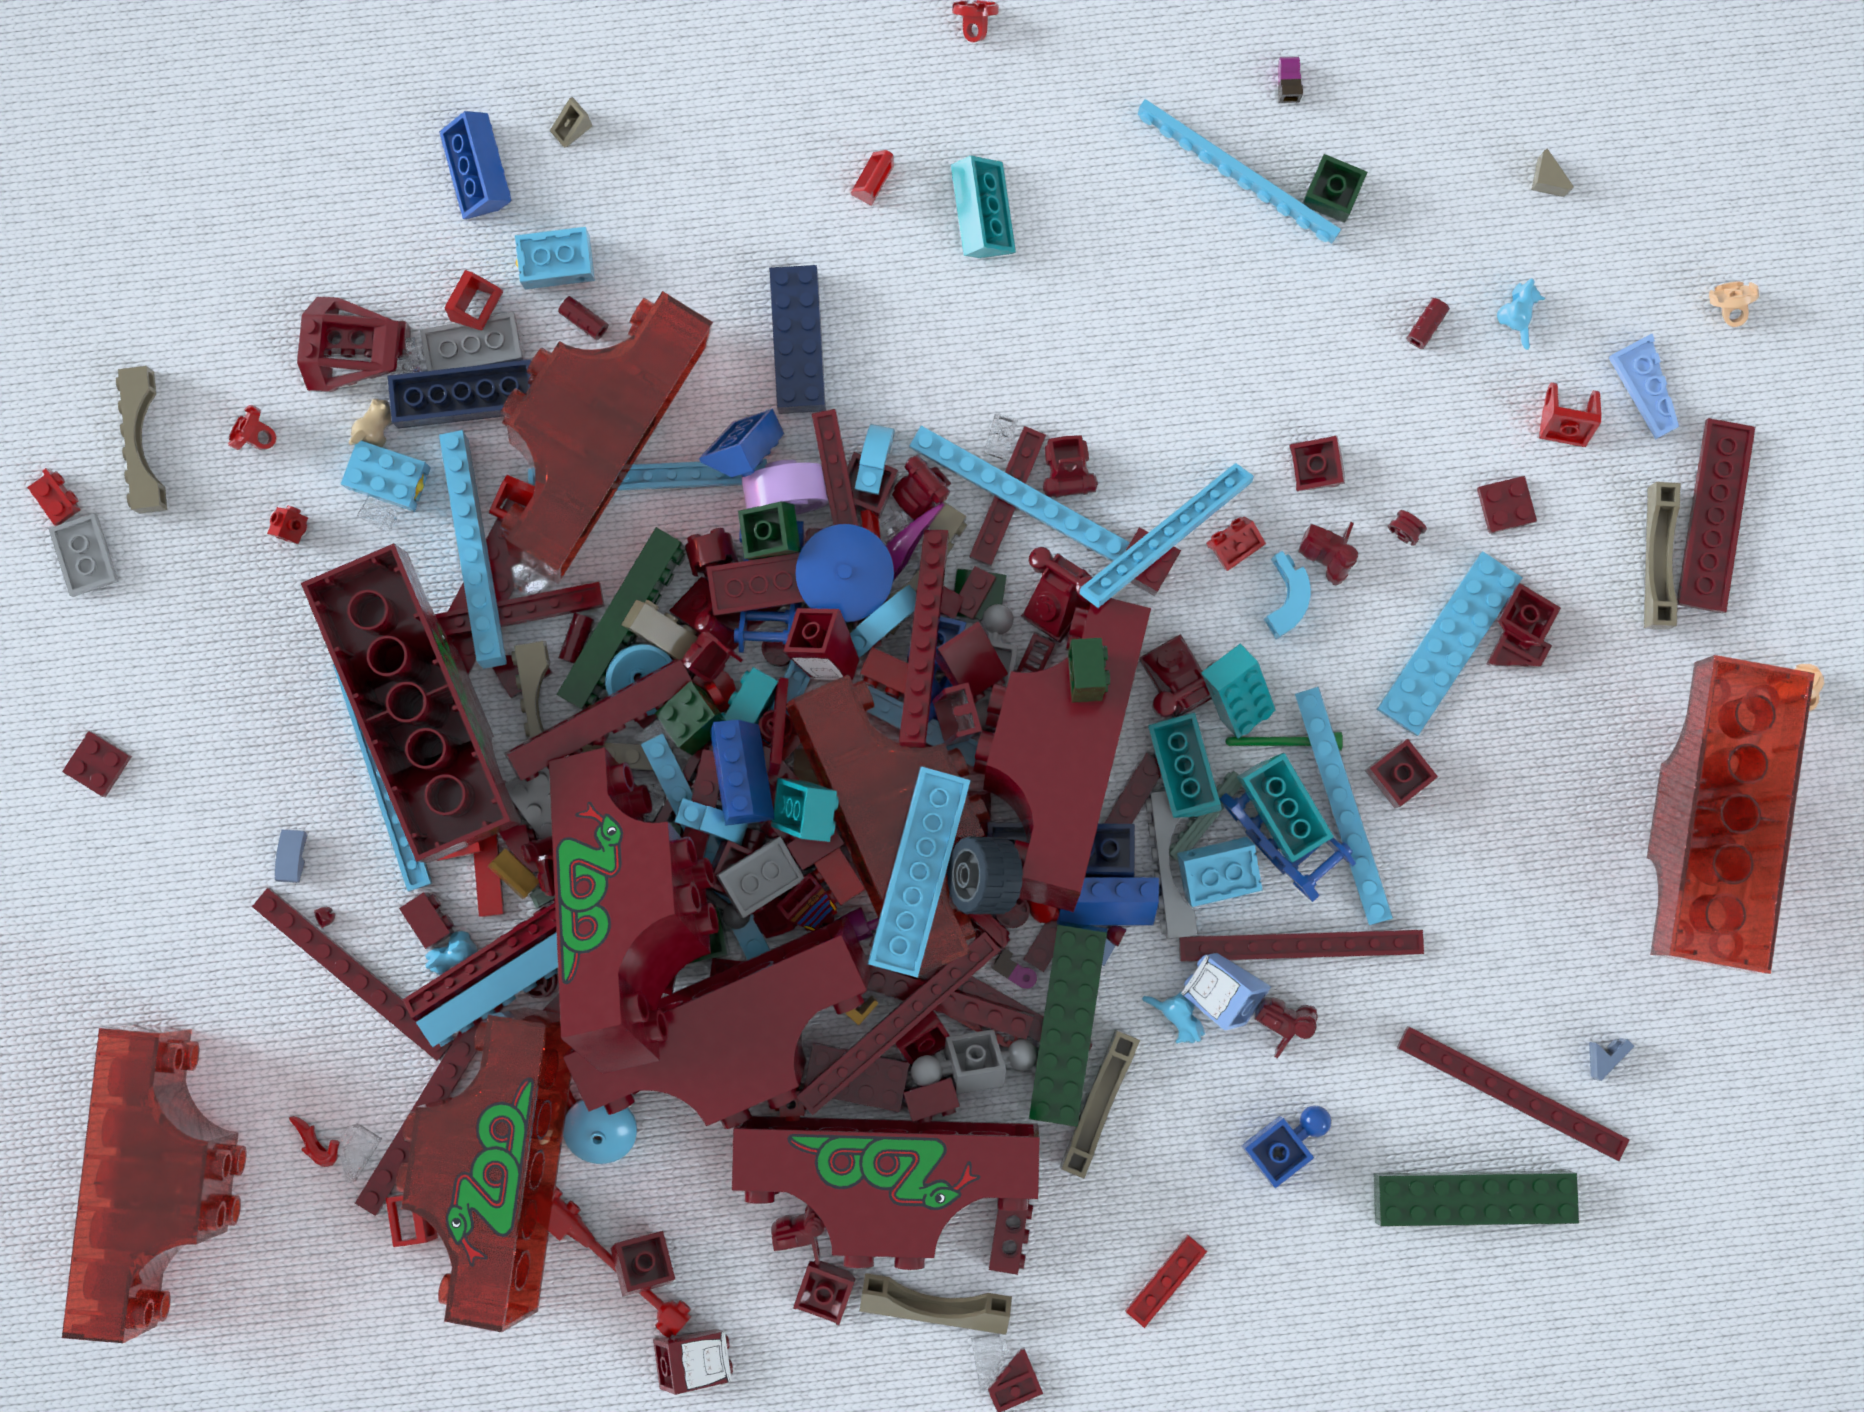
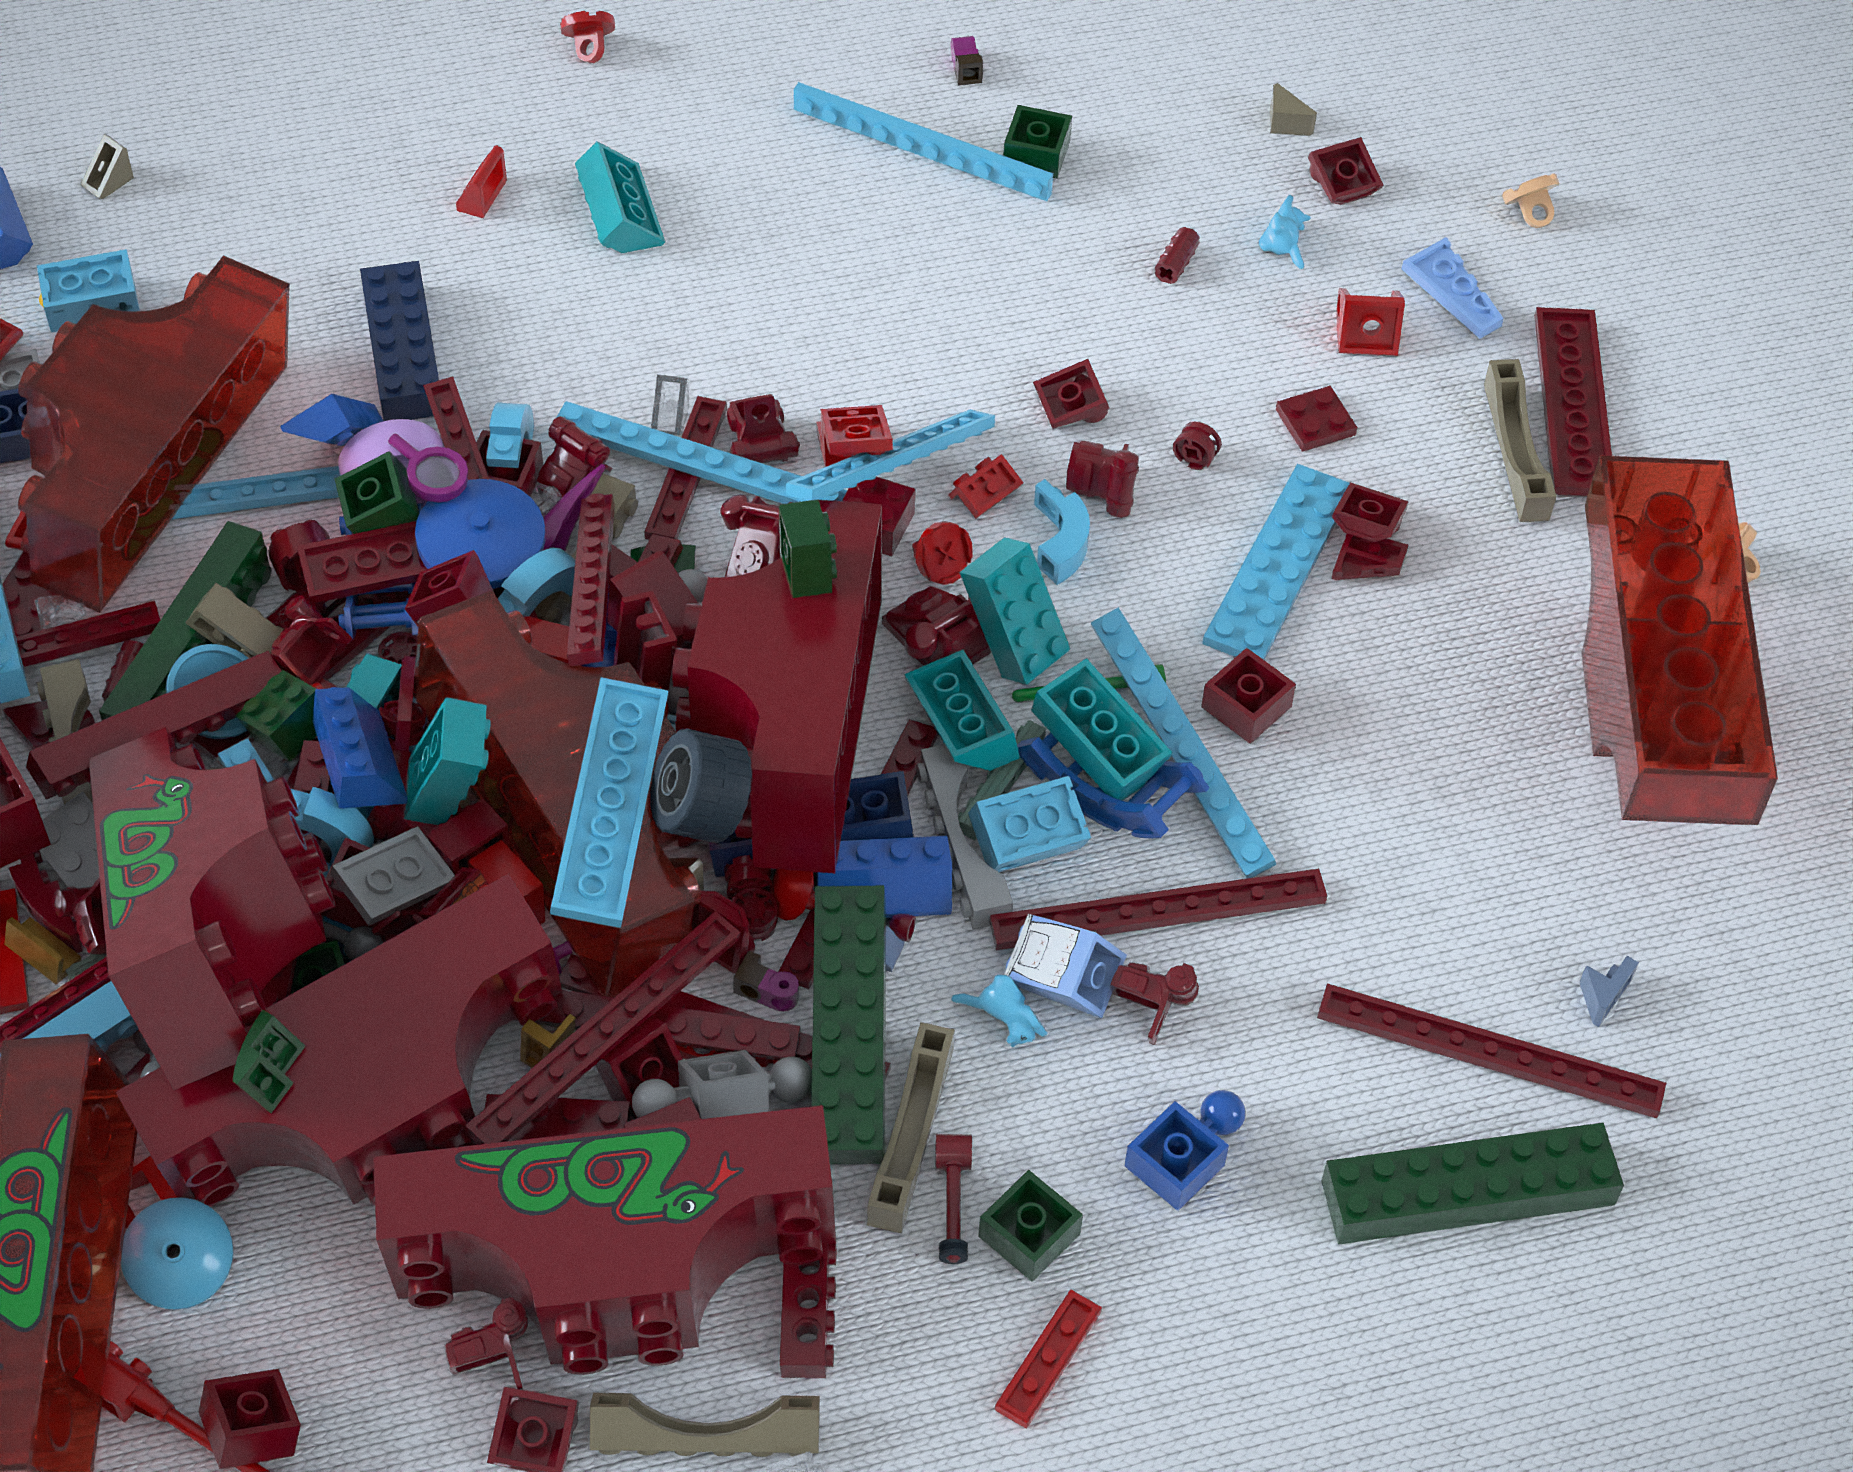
camera: 10 degrees left, 30 degrees down
(663, 1067) = (265, 1059): none -> dark green slope
(814, 521) = (434, 472): none -> magenta piece
(1124, 1125) = (953, 1155): none -> dark red piece
(1139, 501) = (853, 431): none -> red bracket
(1169, 1191) = (1030, 1225): none -> dark green brick
(1193, 610) = (943, 552): none -> red tile
(1584, 250) = (1345, 171): none -> dark red slope

